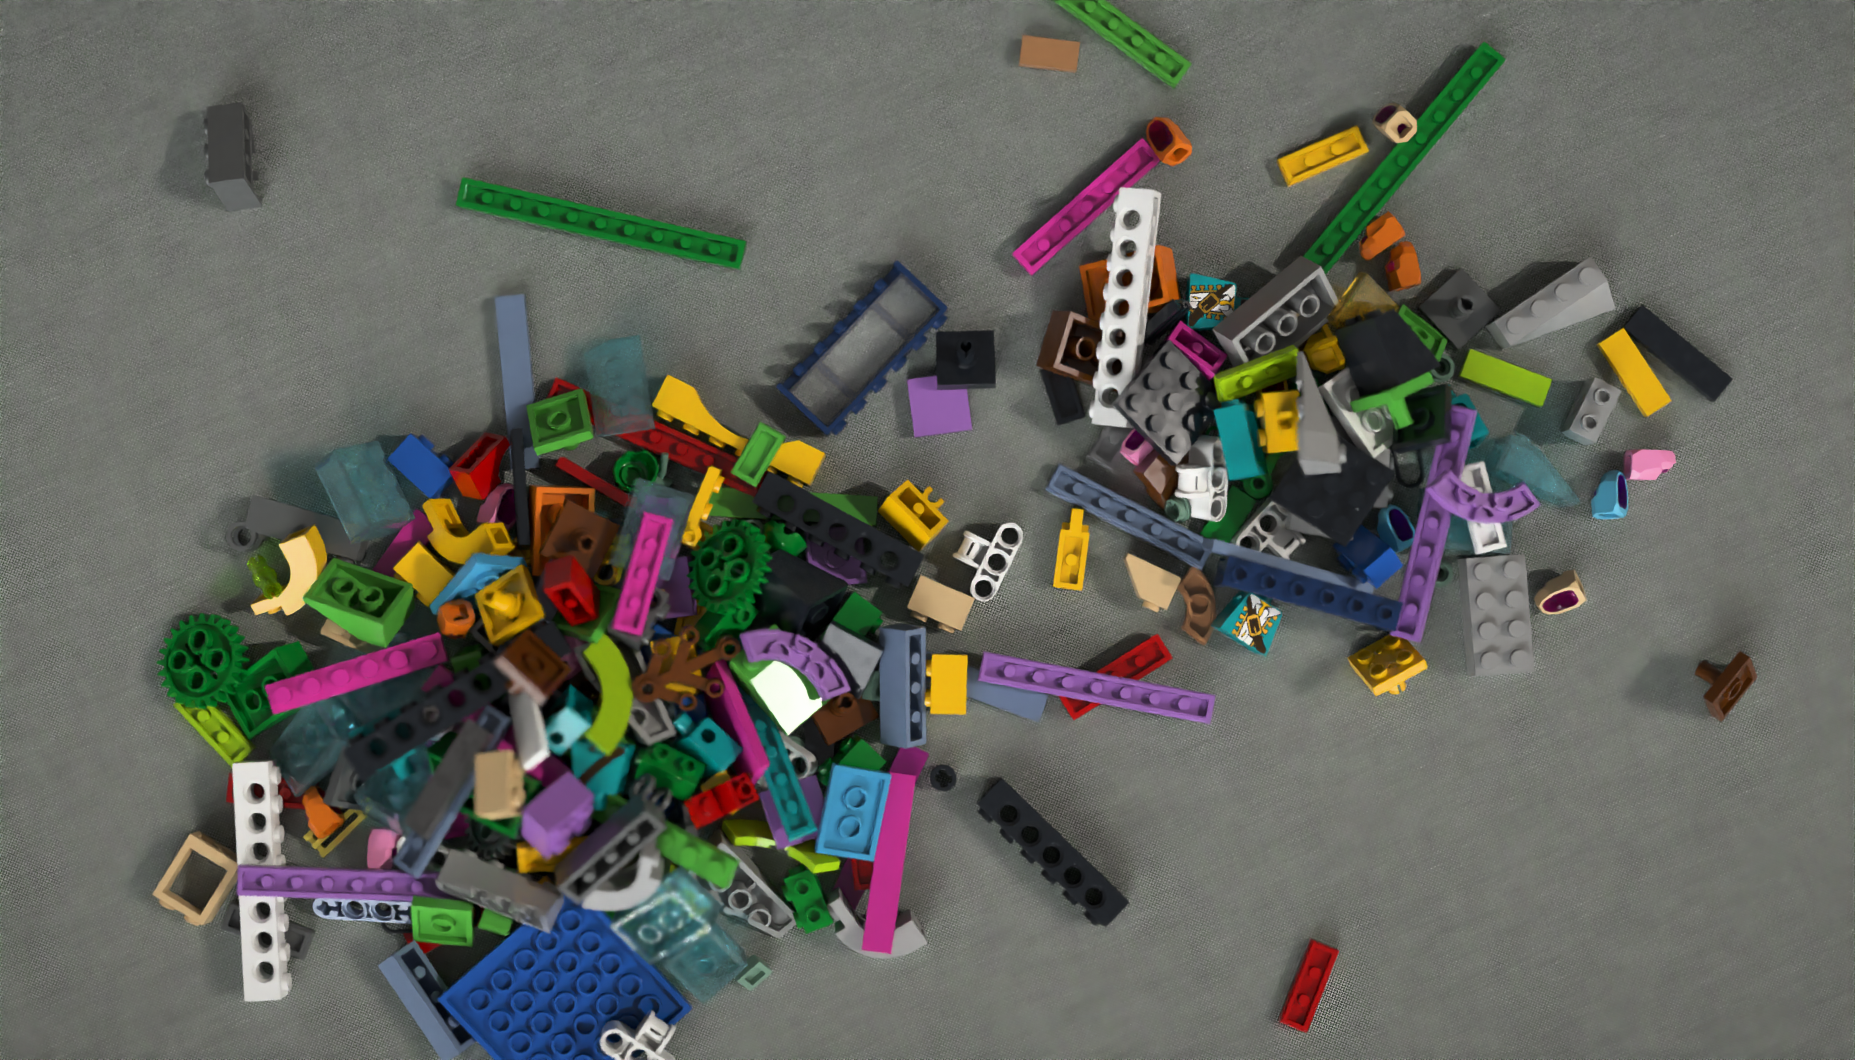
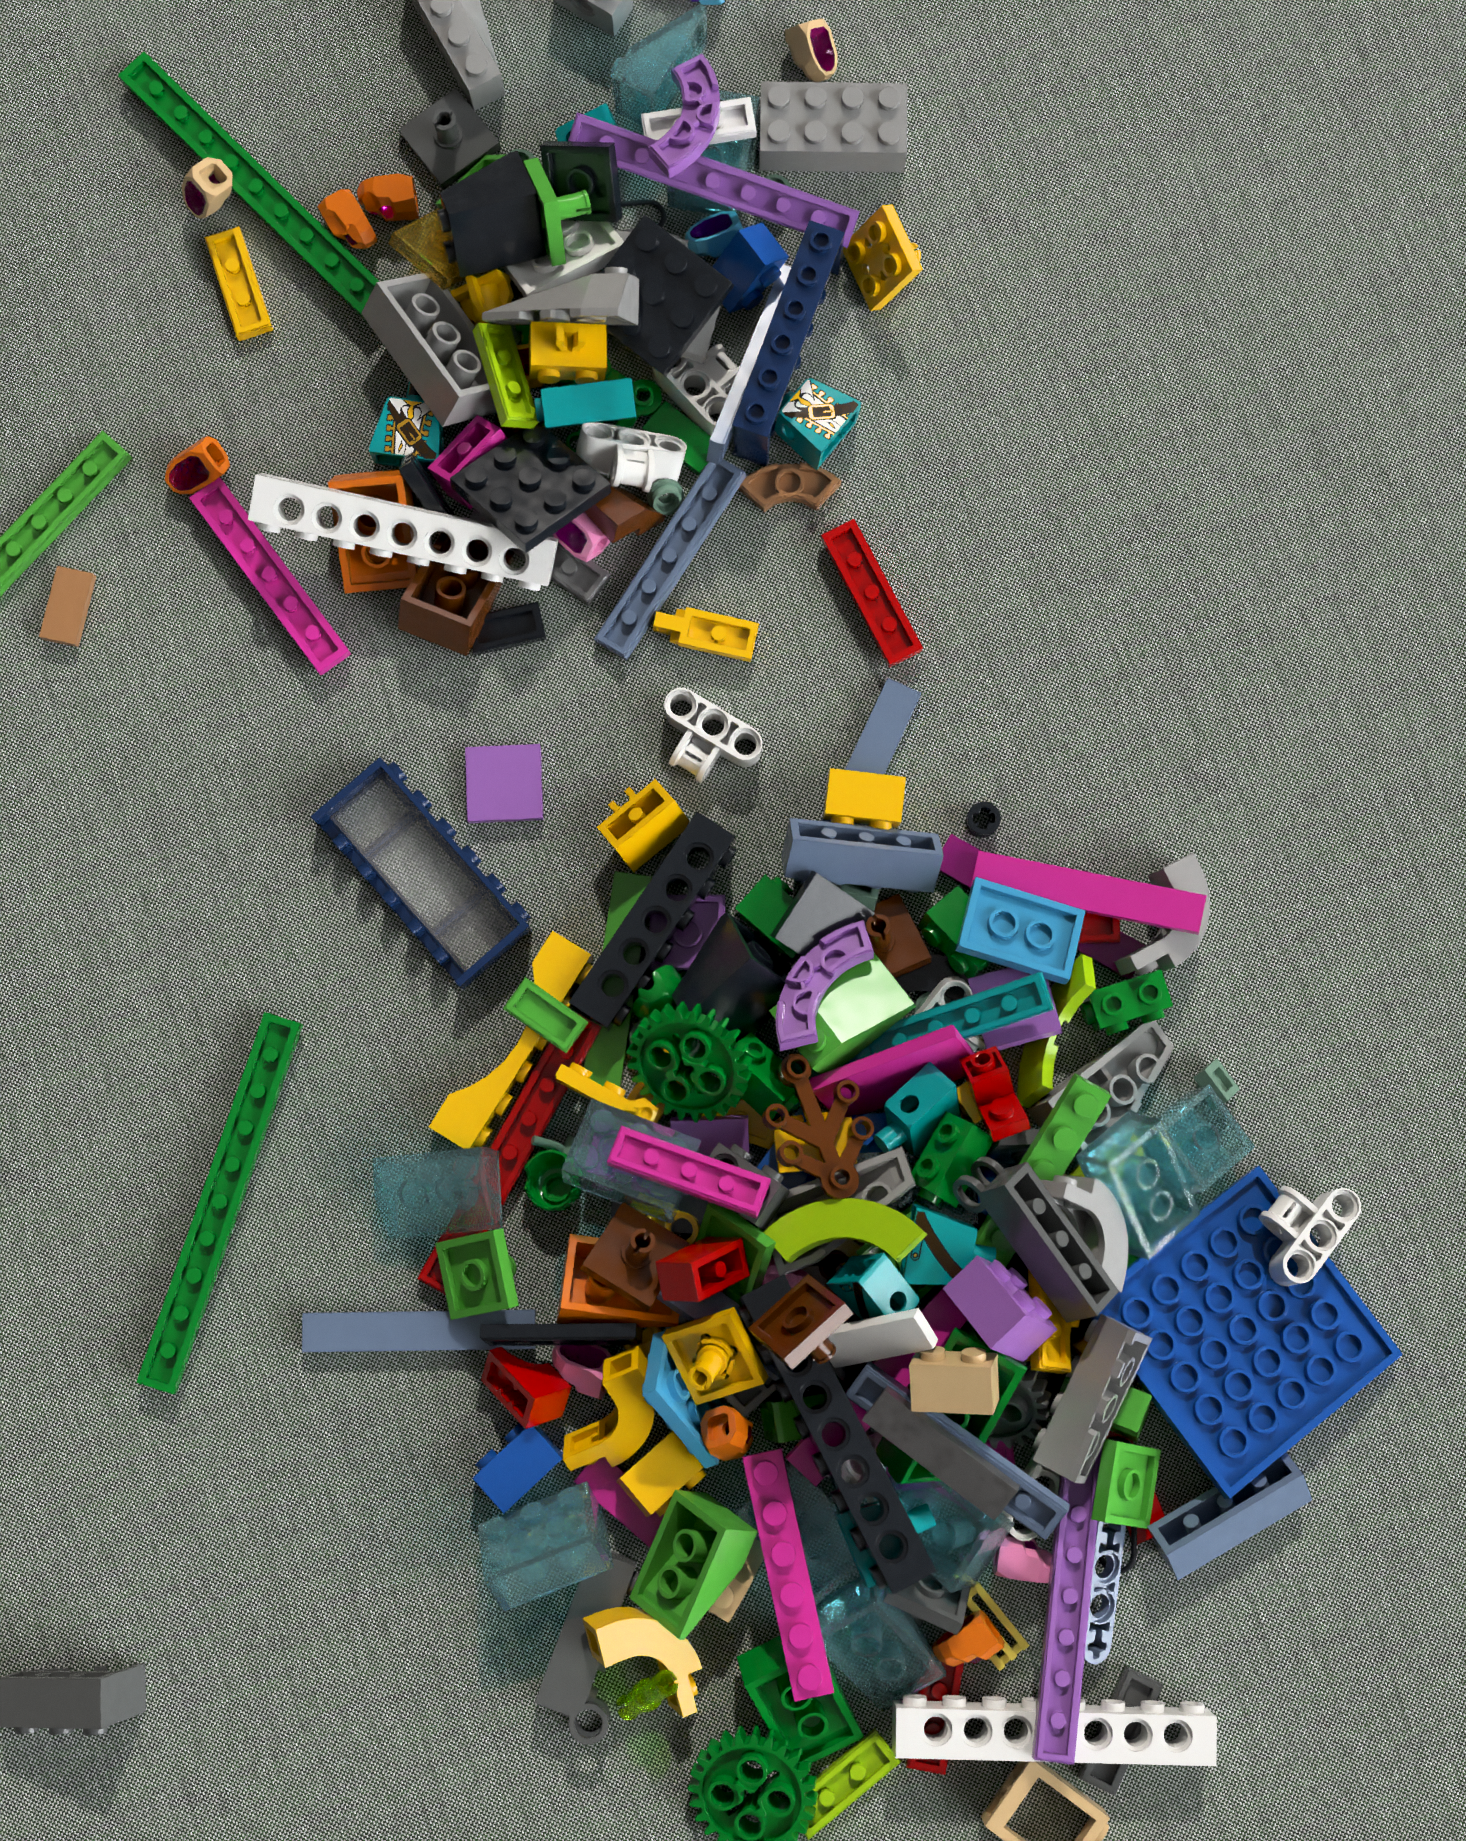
camera: 85 degrees left, 5 degrees down
(592, 481) = (558, 1241): red tile -> none
(940, 603) = (760, 802): tan brick -> none
(965, 360) = (450, 744): black tile -> none
(1096, 687) = (883, 616): medium lavender tile -> none
(1111, 899) = (1153, 622): black brick -> none
(1151, 583) = (756, 537): tan slope -> none
(1308, 985) = (1274, 394): red tile -> none
(1505, 378) = (540, 92): lime tile -> none

